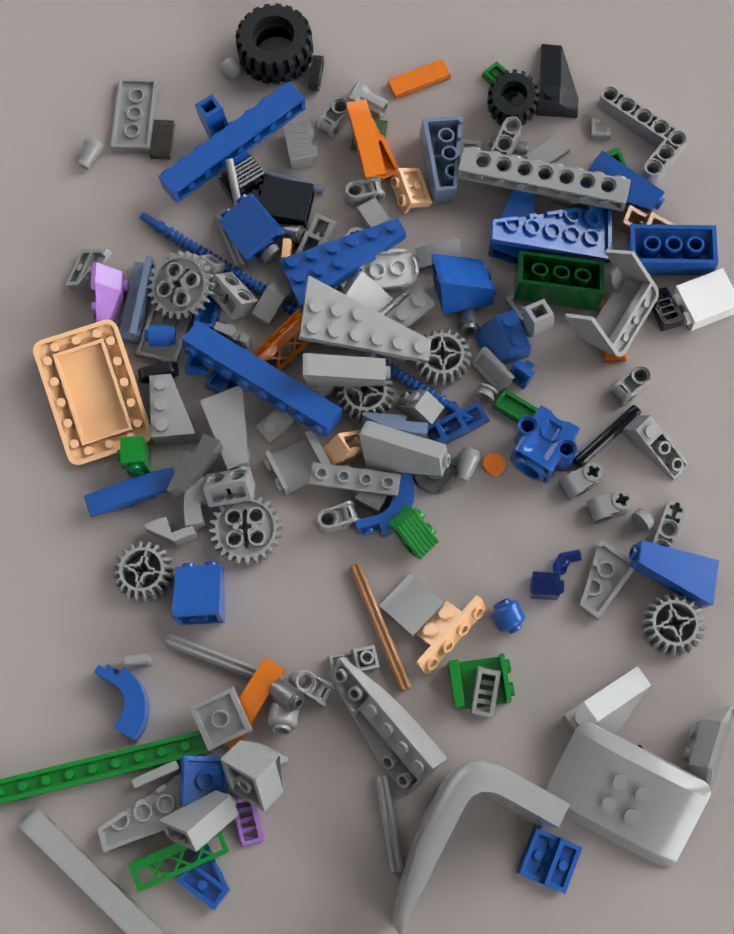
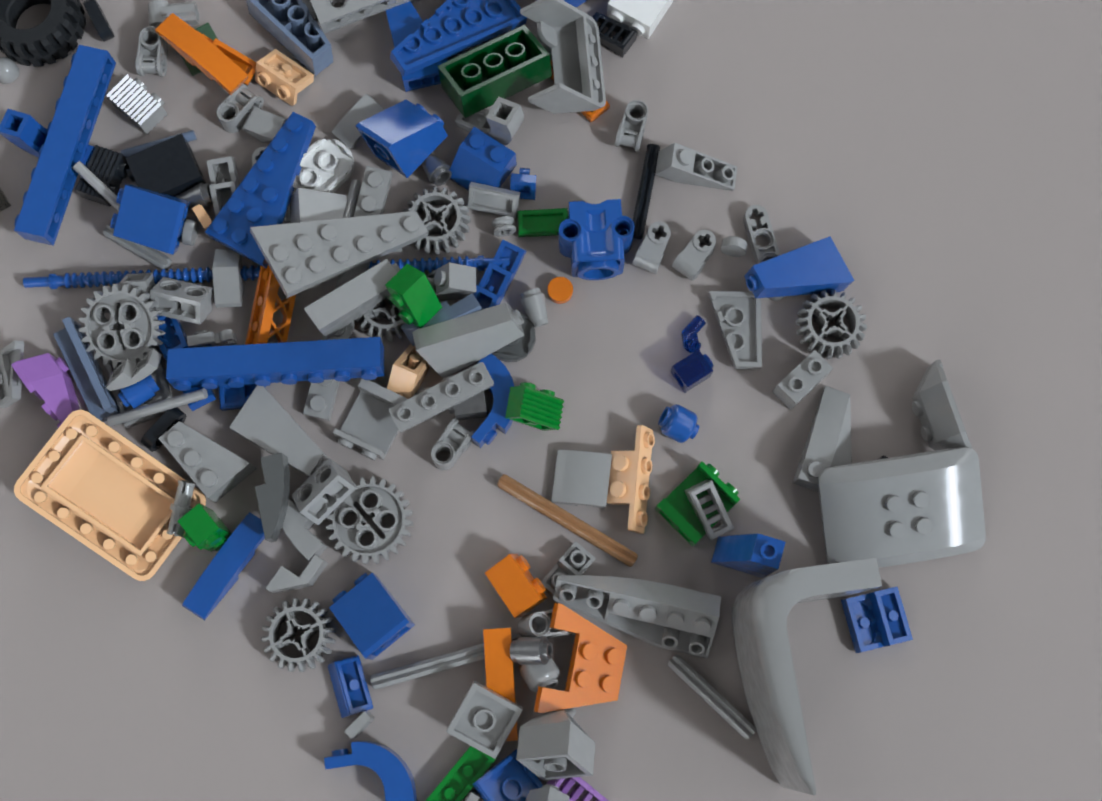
camera: 40 degrees left, 5 degrees up
(130, 430) = (180, 506): none -> light grey pin
(151, 631) = (350, 686): none -> blue slope
(163, 320) = (131, 373): none -> light grey slope
(164, 355) = (157, 407): none -> light grey bar
(311, 644) = (516, 585): none -> orange brick
(322, 740) = (593, 668): none -> orange wing
(384, 396) = (413, 296): none -> green brick
(487, 739) = (749, 553): none -> blue slope
(622, 649) = (802, 379): none -> light grey brick

